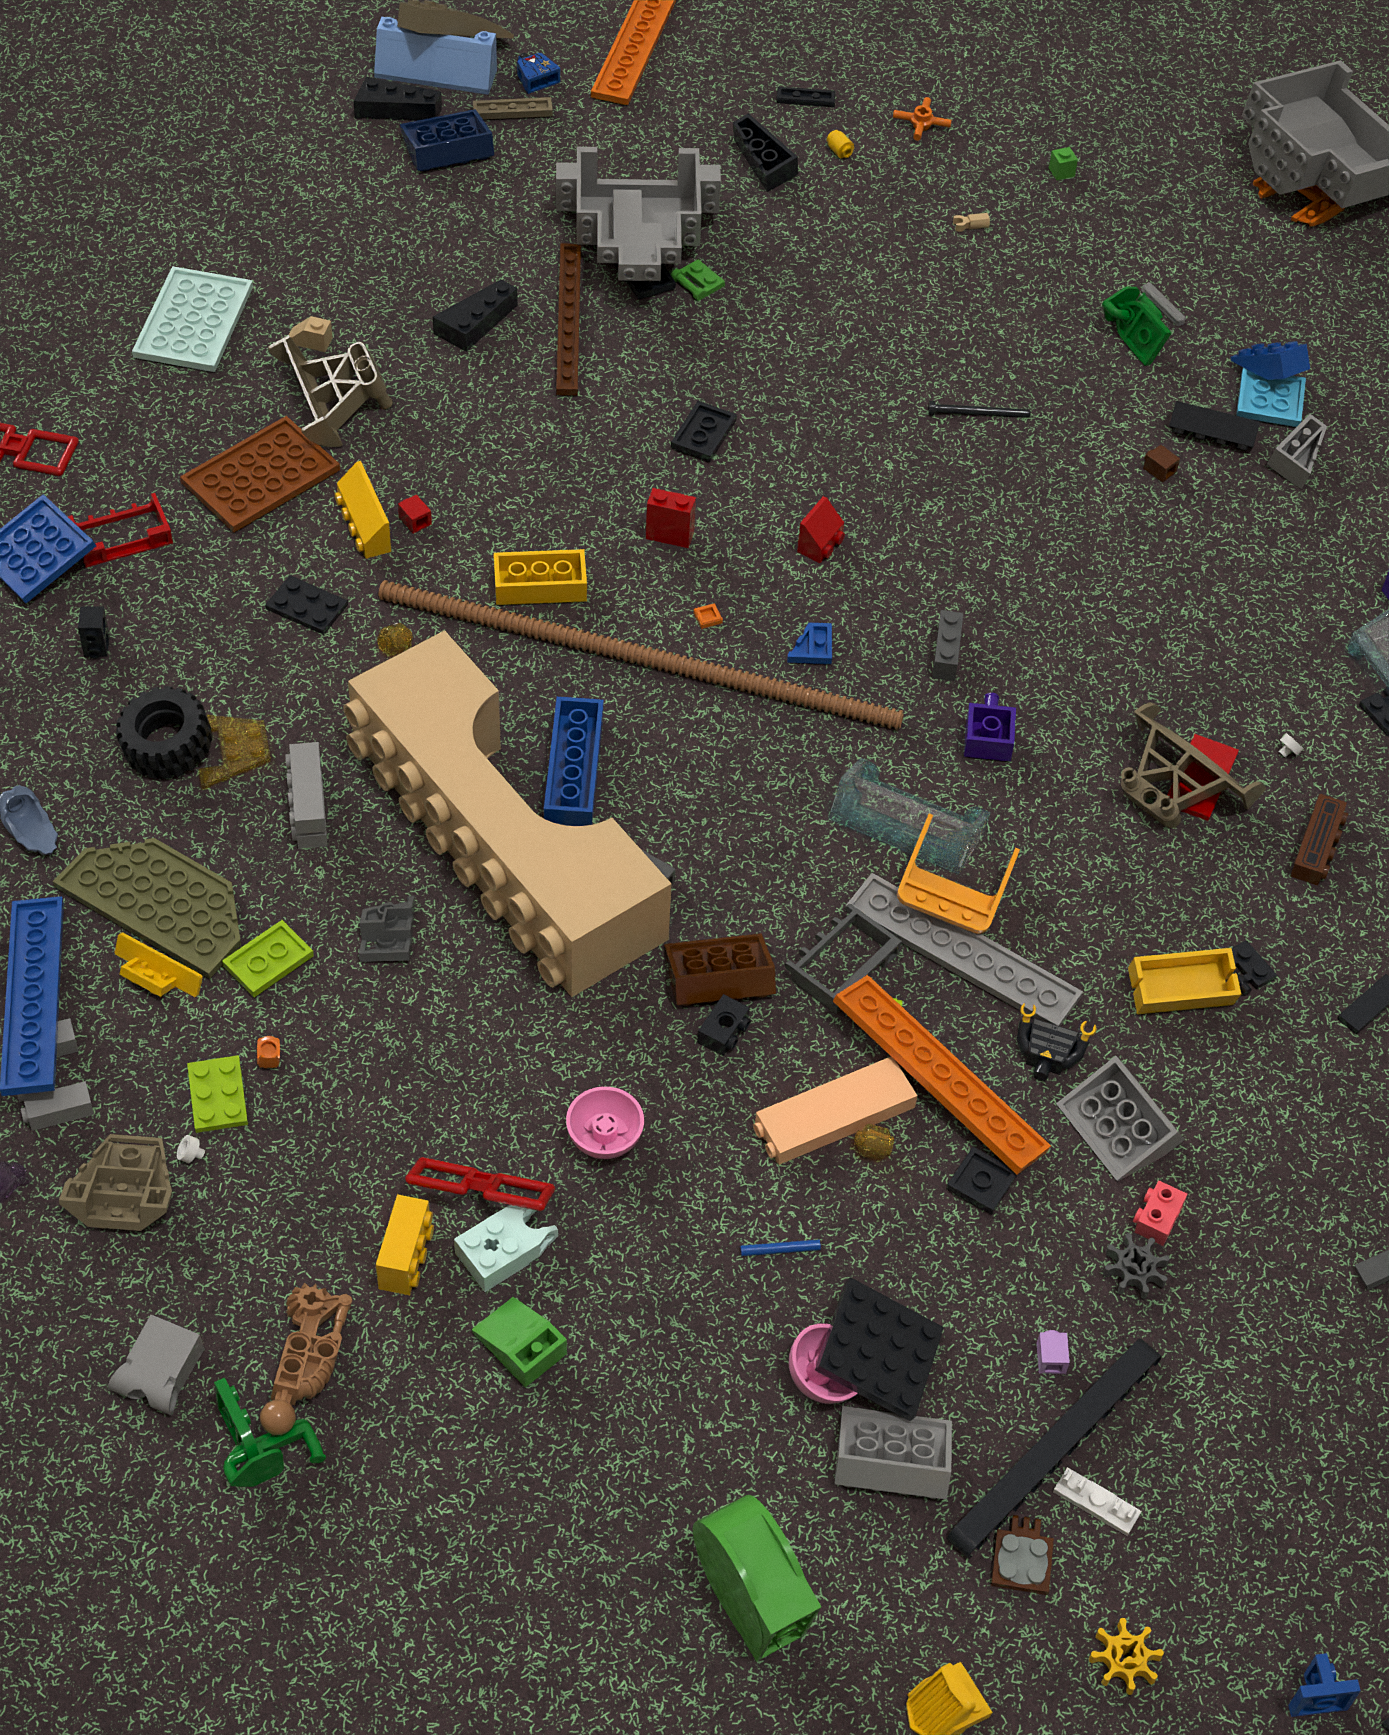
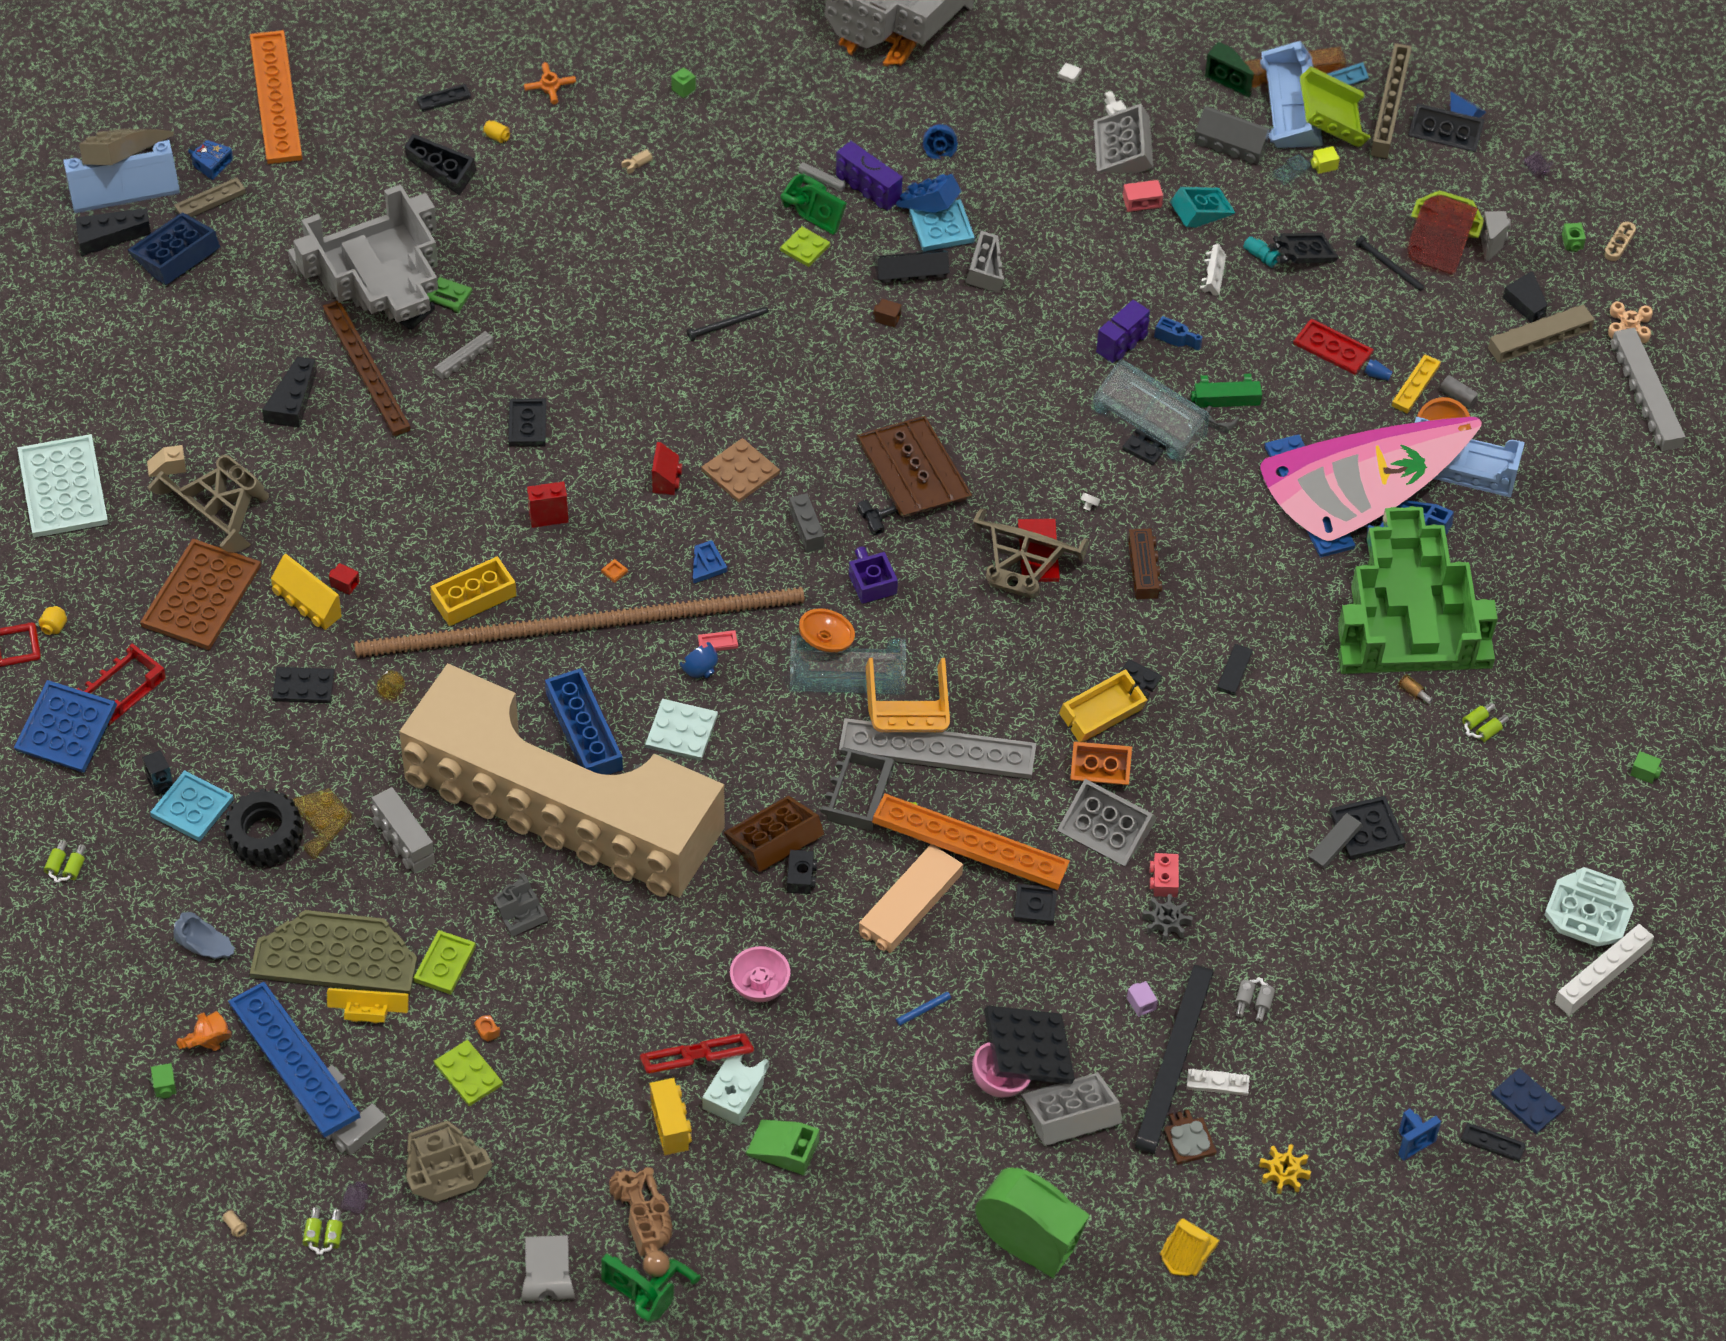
camera: 25 degrees left, 0 degrees up
(95, 442) = (53, 620): none -> yellow head
(109, 680) = (192, 805): none -> medium azure plate
(189, 1149) = (474, 1119): white tile -> none
(677, 342) = (463, 355): none -> light grey piece
(682, 812) = (681, 729): none -> light aqua plate
(743, 746) = (700, 662): none -> blue cylinder
(778, 733) = (719, 640): none -> coral tile
(874, 1142) = (949, 909): clear yellow head -> none
(904, 767) = (826, 630): none -> orange dish
(907, 564) = (740, 470): none -> medium nougat plate
(1030, 668) = (875, 516): none -> black bar
(1050, 1046) = (1033, 791): black torso -> none
(1103, 633) = (913, 466): none -> reddish brown piece
(1106, 366) = (805, 246): none -> lime plate
(1148, 1046) = (1101, 763): none -> orange slope
(1206, 1423) = (1245, 995): none -> light grey piece
(1213, 317) = (868, 175): none -> dark purple brick
(1313, 308) = (940, 138): none -> blue cylinder

